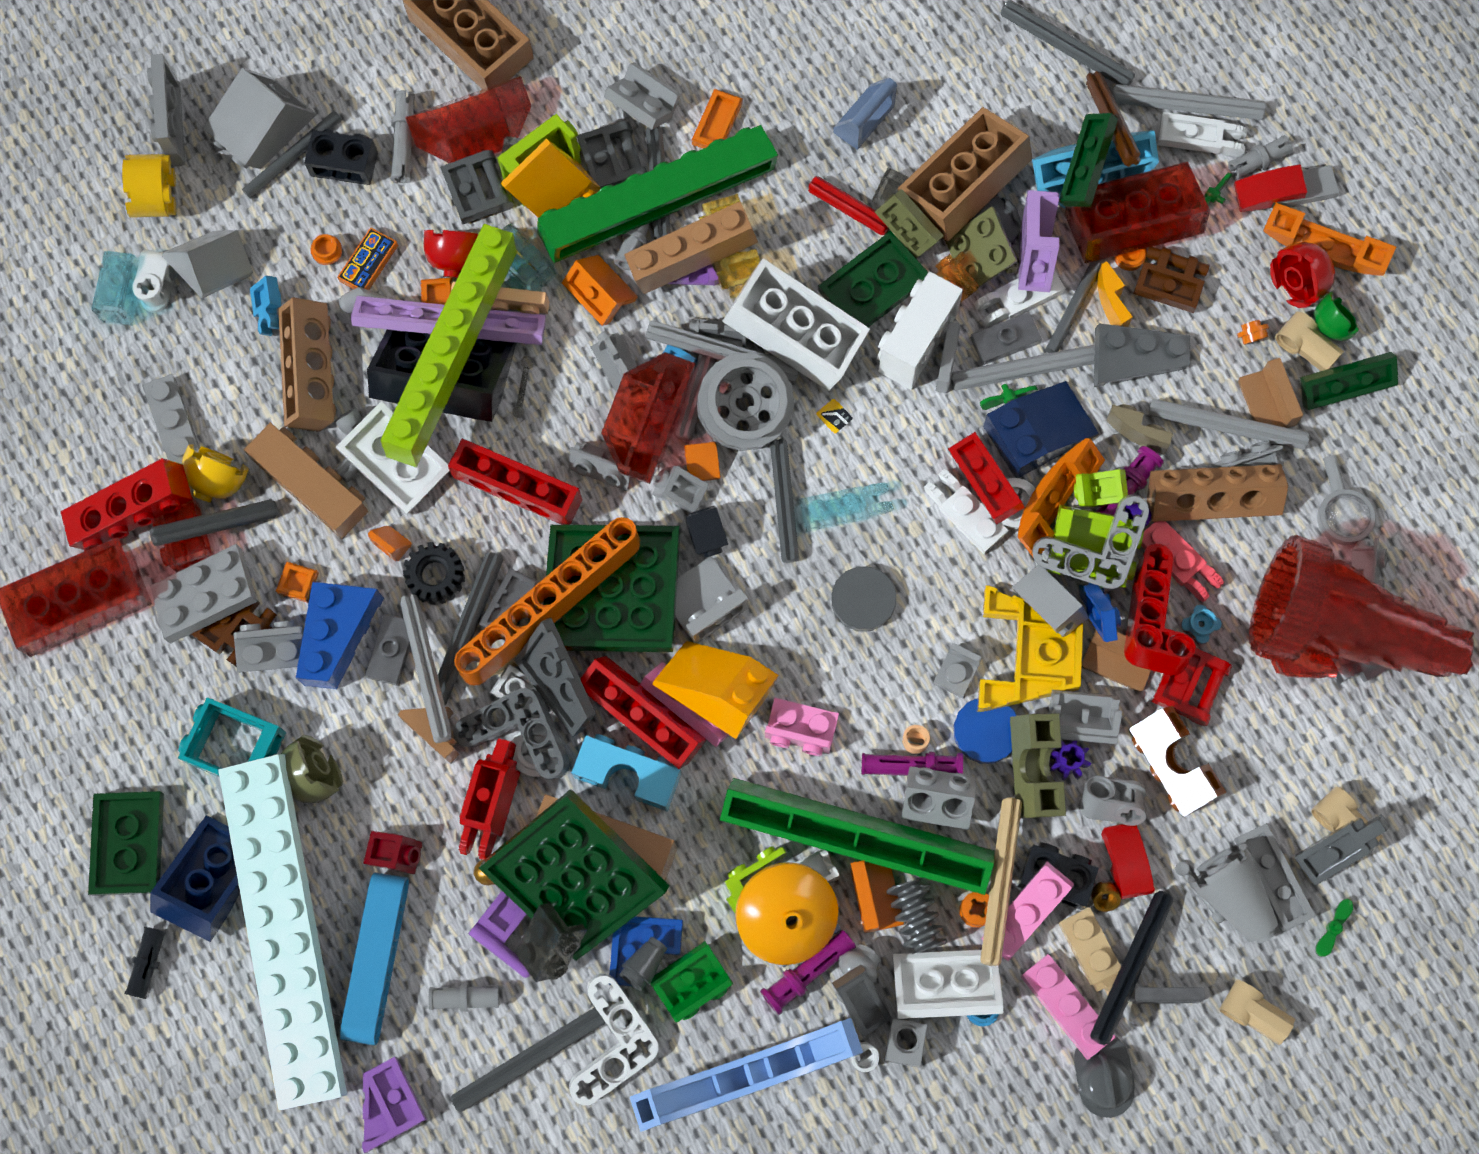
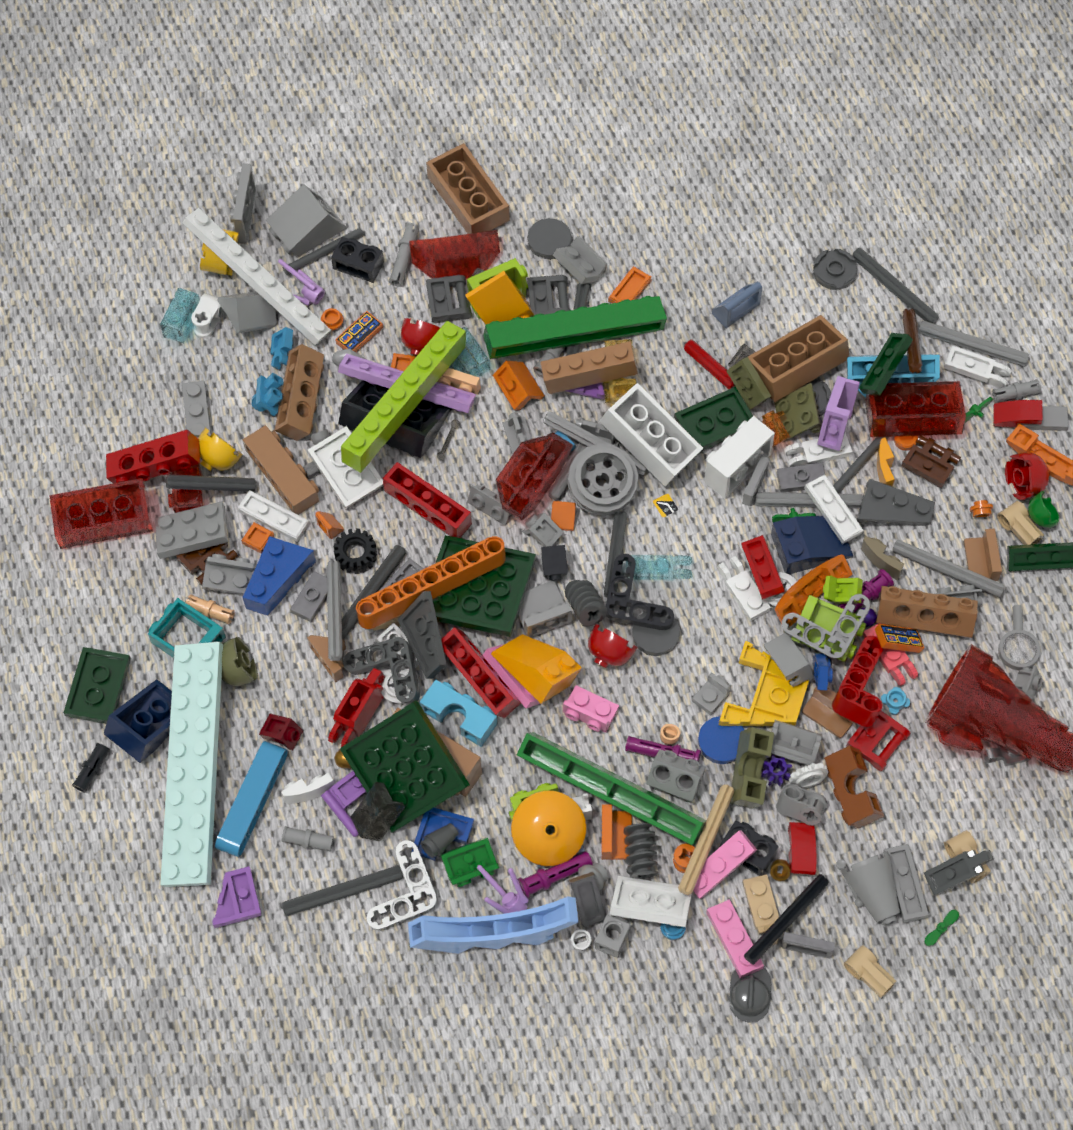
camera: 10 degrees right, 10 degrees down
(206, 212) = (256, 276): none -> white plate
(255, 699) = (211, 609): none -> light nougat pin
(263, 376) = (268, 394): none -> dark azure hips
(289, 215) = (312, 292): none -> lavender plant
(311, 546) = (273, 516): none -> white tile
(437, 933) = (299, 792): none -> white slope
(591, 71) = (547, 236): none -> dark grey tile
(762, 581) = (585, 602): none -> dark grey piece
(762, 1027) = (511, 901): none -> lavender plant
(808, 637) = (609, 648): none -> red cylinder
(811, 563) = (622, 599): none -> black beam
(977, 44) = (831, 274): none -> dark grey tile
(1060, 375) = (833, 509): none -> white tile
(1114, 758) = (809, 775): none -> white gear
(1189, 538) = (899, 638): none -> tile

